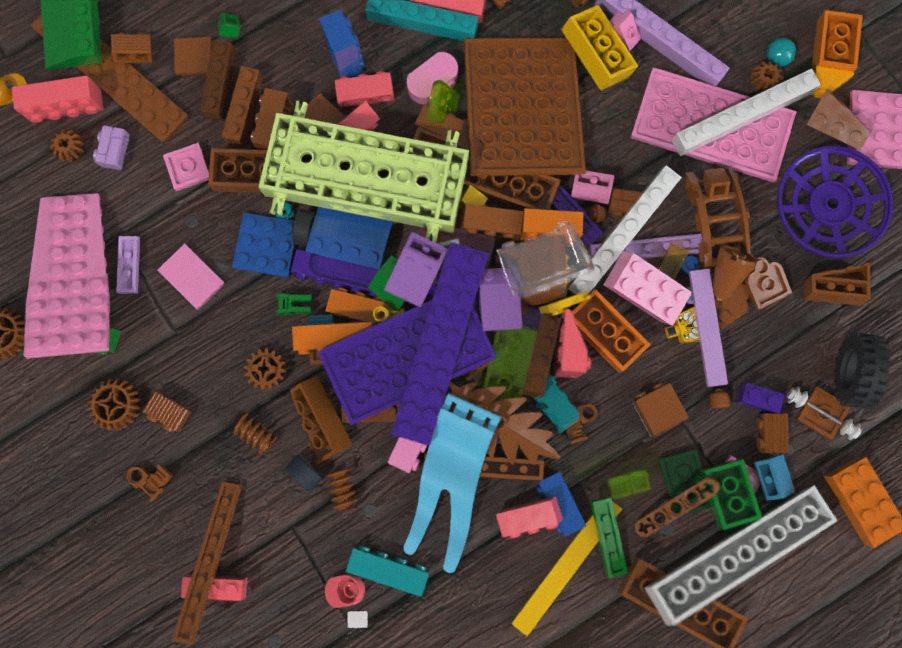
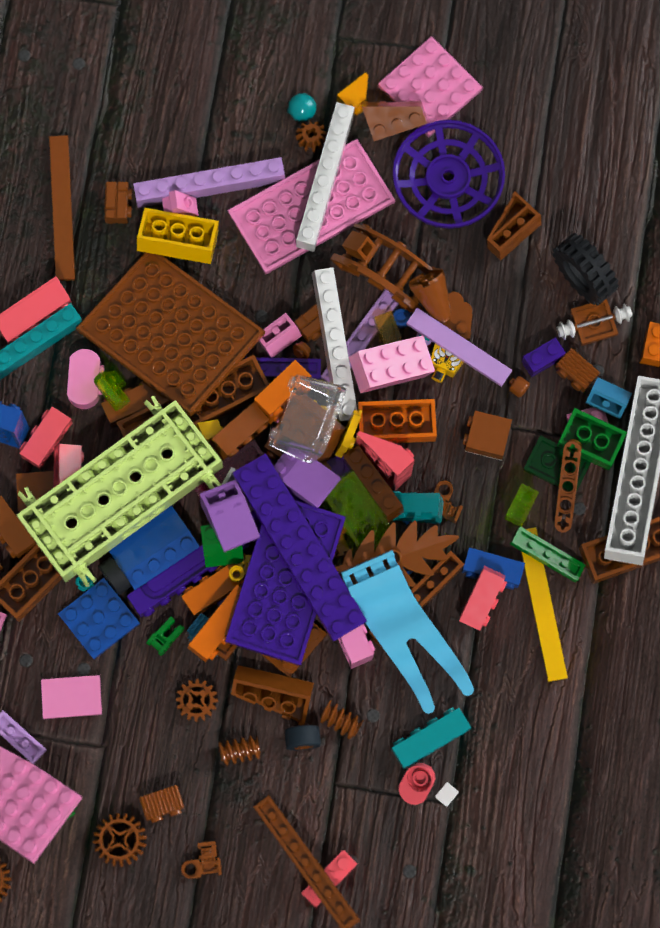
camera: 55 degrees left, 5 degrees down
(767, 283) = (464, 275): plate -> none
(837, 41) = (332, 63): orange brick -> none

